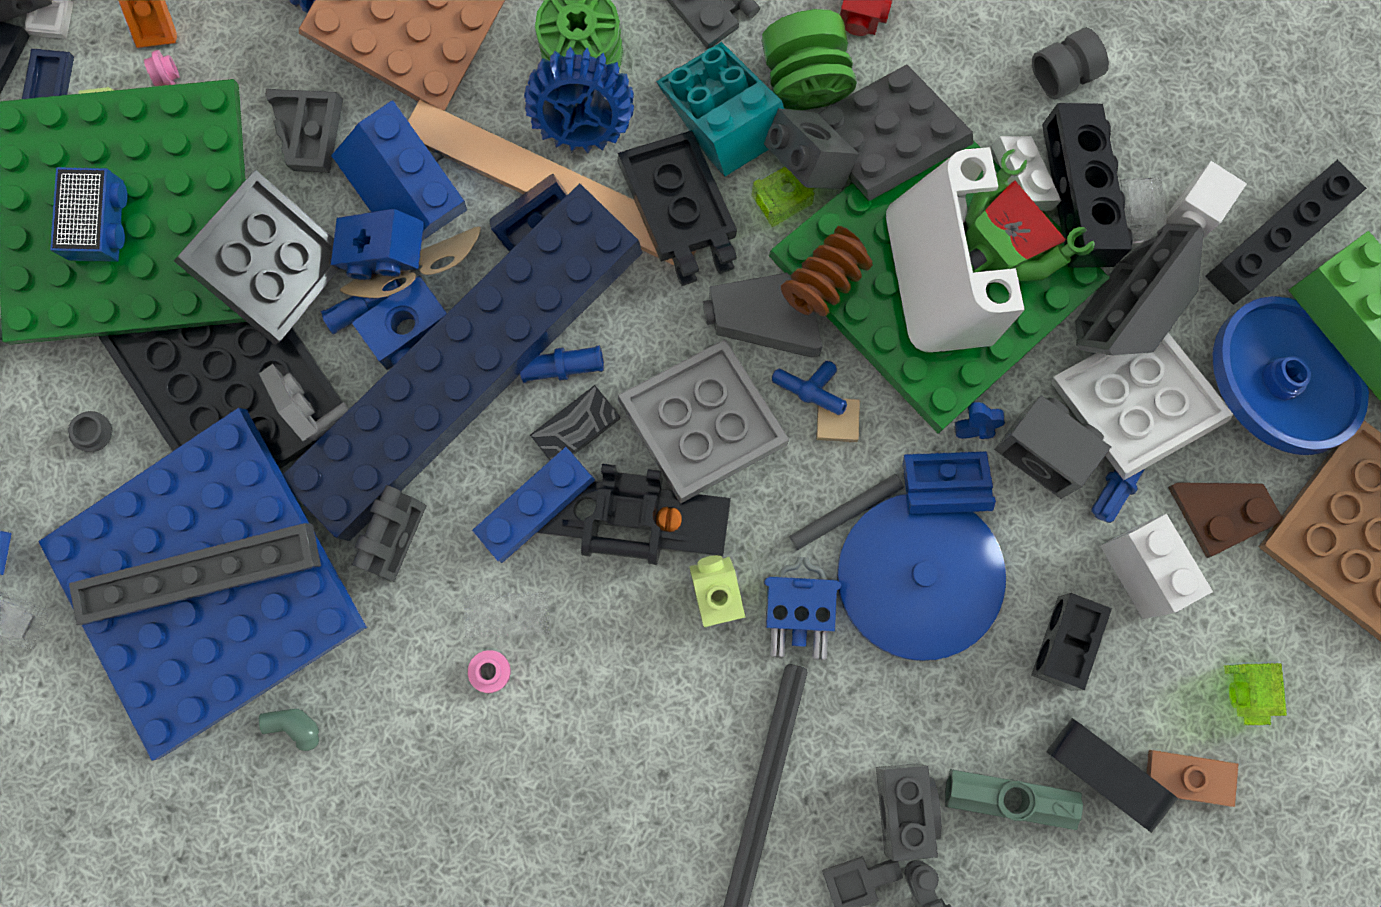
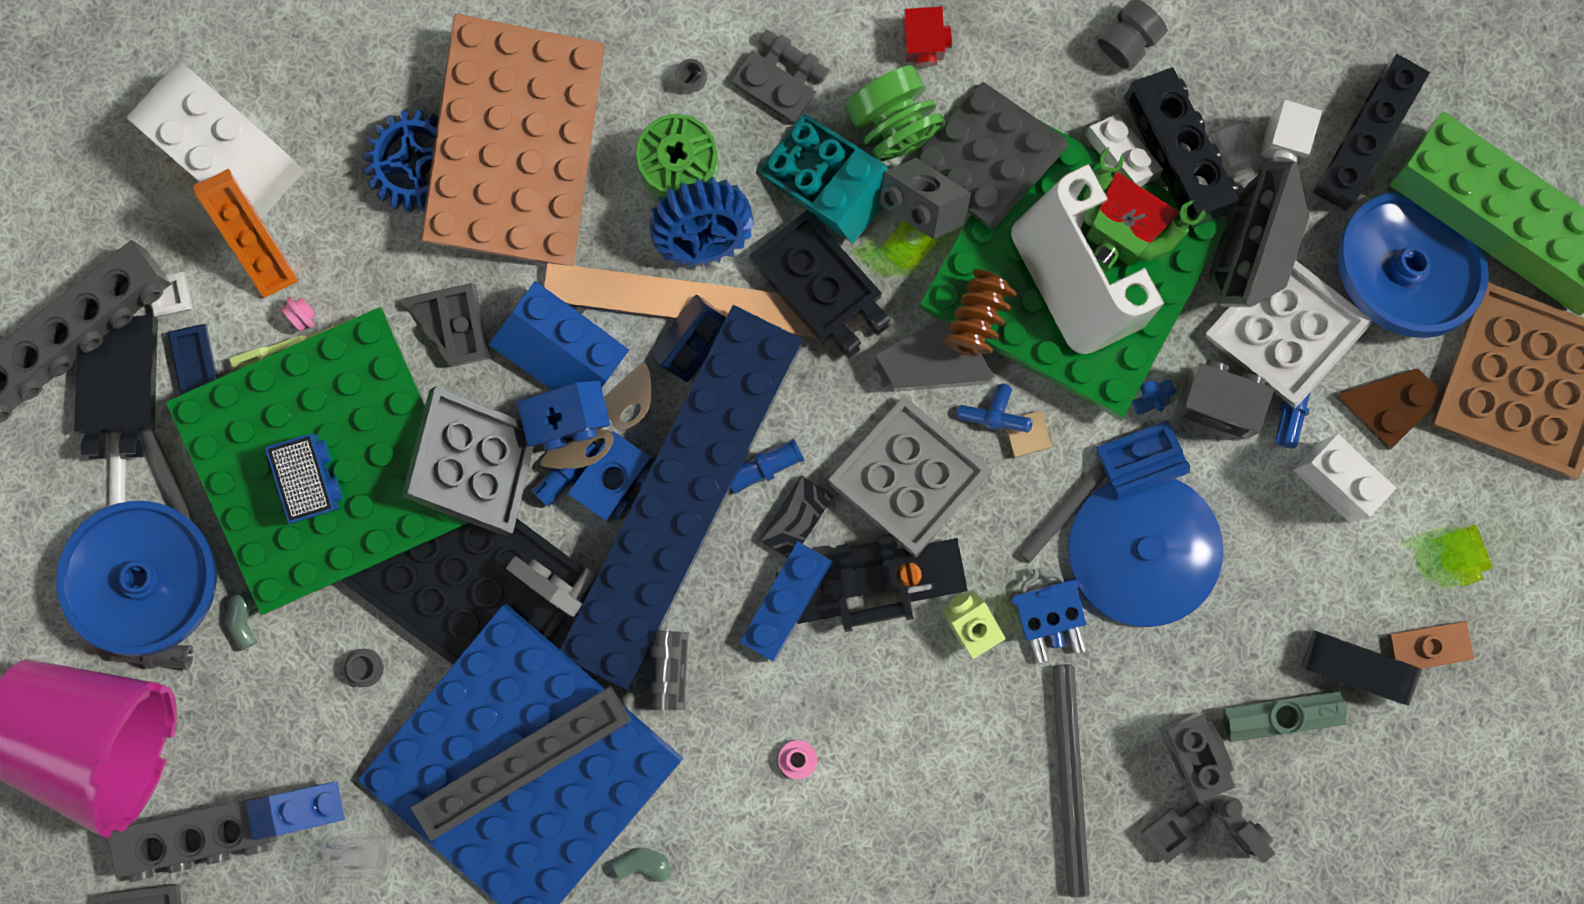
camera: 20 degrees left, 5 degrees up
(1071, 642) = (1292, 565): black brick -> none

